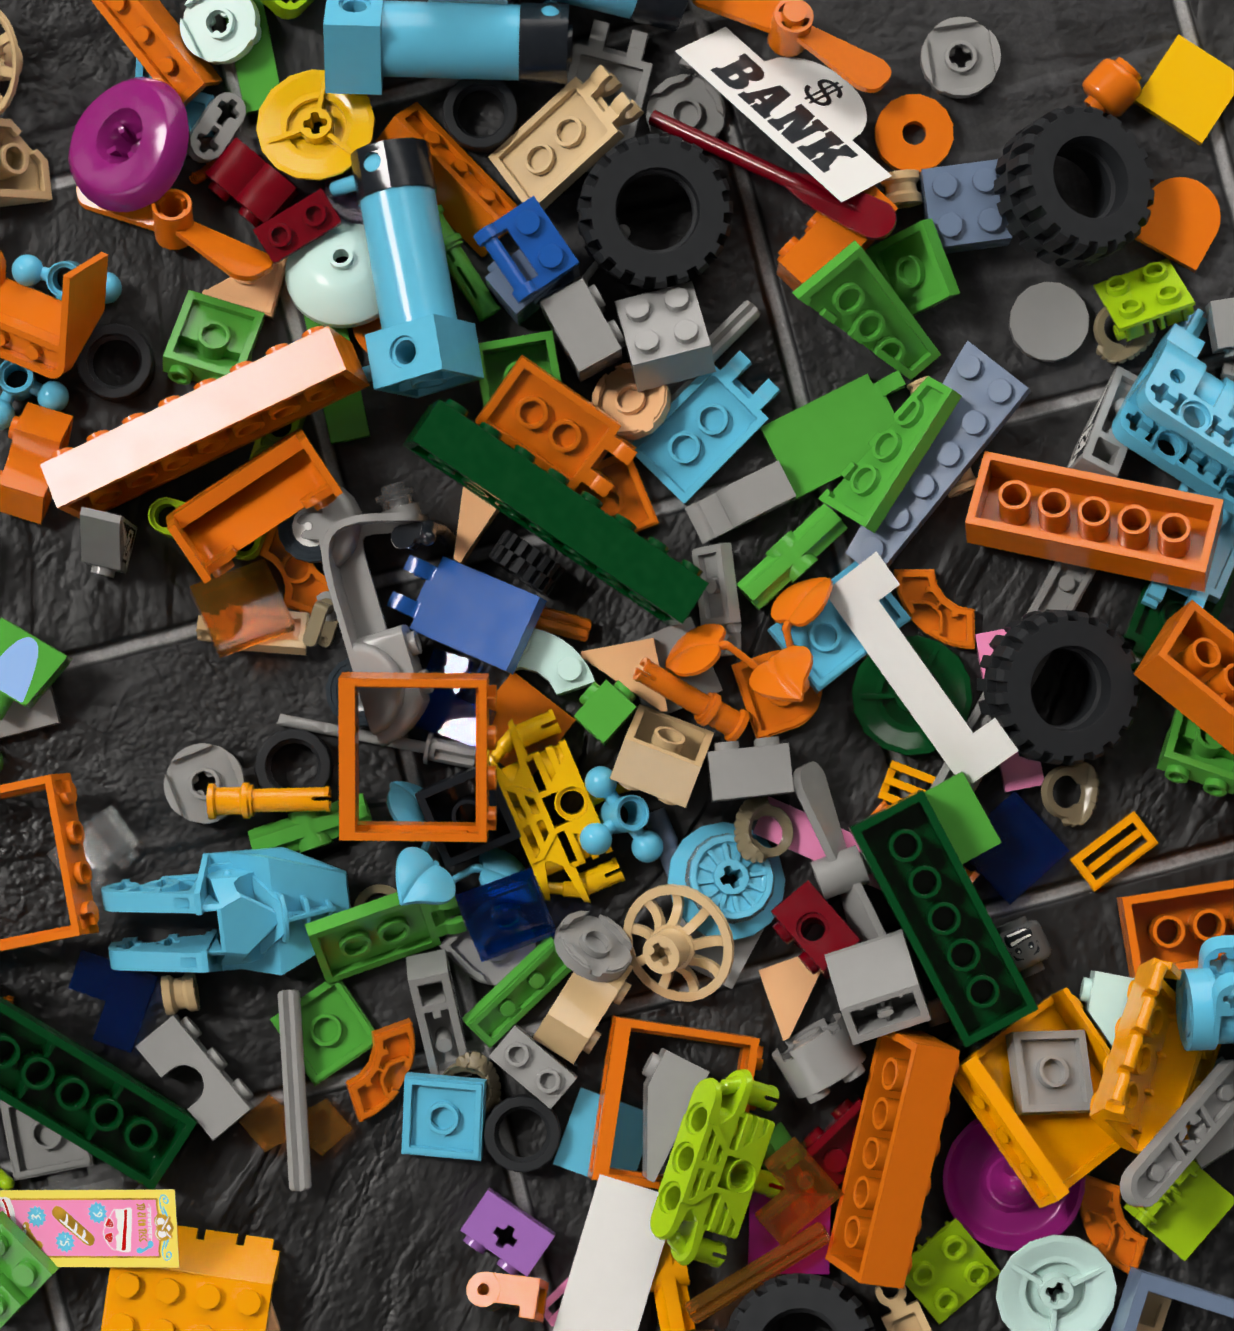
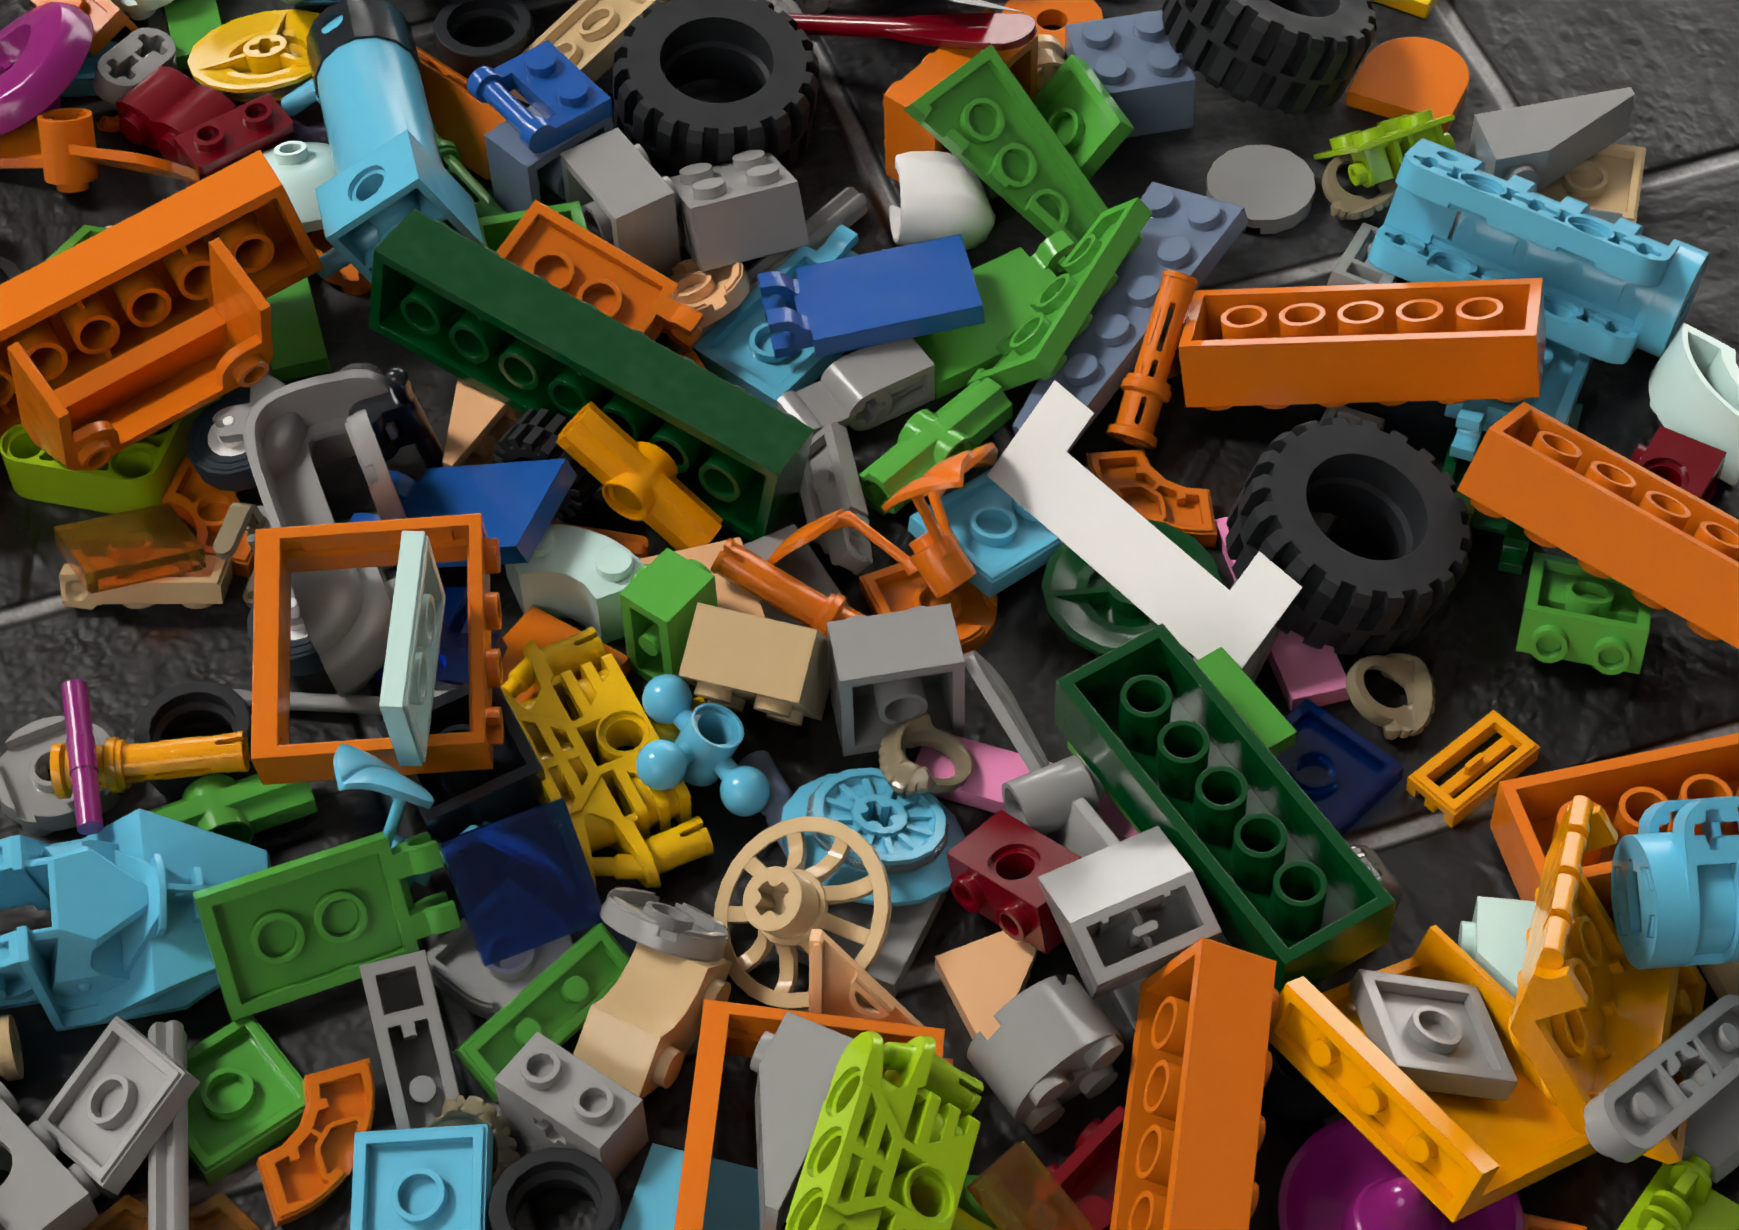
camera: 10 degrees left, 35 degrees down
(228, 809) = (82, 757): none -> magenta piece
(262, 1045) = (117, 1104): none -> light grey tile
(411, 588) = (374, 466): none -> light grey tile
(444, 800) = (412, 649): none -> light aqua tile
(588, 595) = (638, 479): none -> light orange piece
(705, 1010) = (845, 988): none -> light nougat tile
(760, 434) = (872, 298): none -> blue tile
(809, 338) = (939, 200): none -> white piece
(941, 528) = (1138, 387): none -> orange pin

